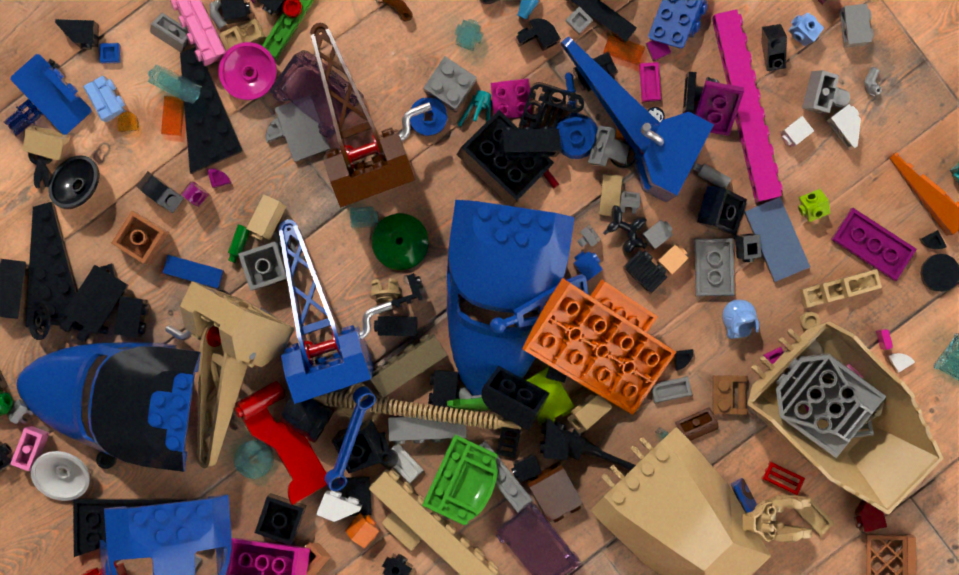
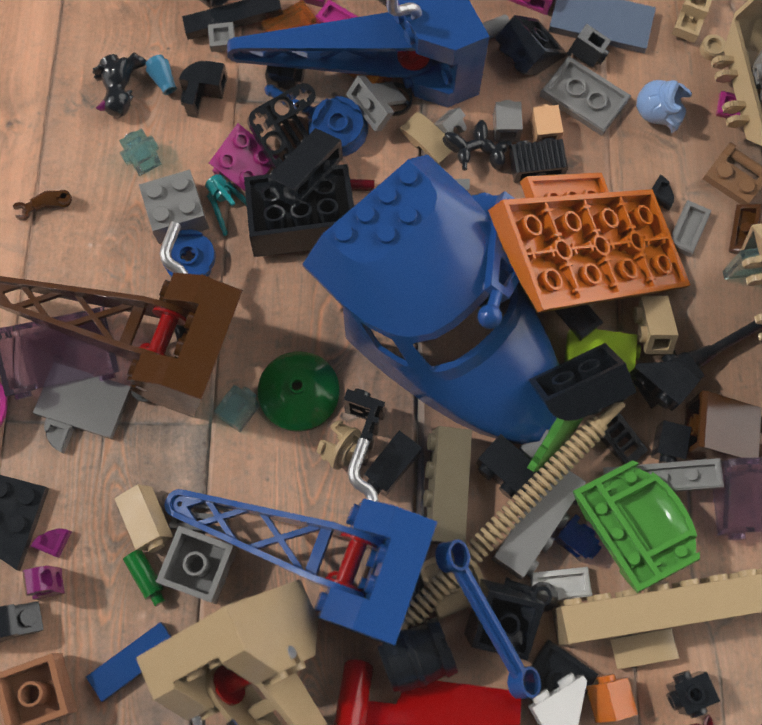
camera: 50 degrees left, 15 degrees down
(433, 455) = (578, 539): none -> clear blue brick

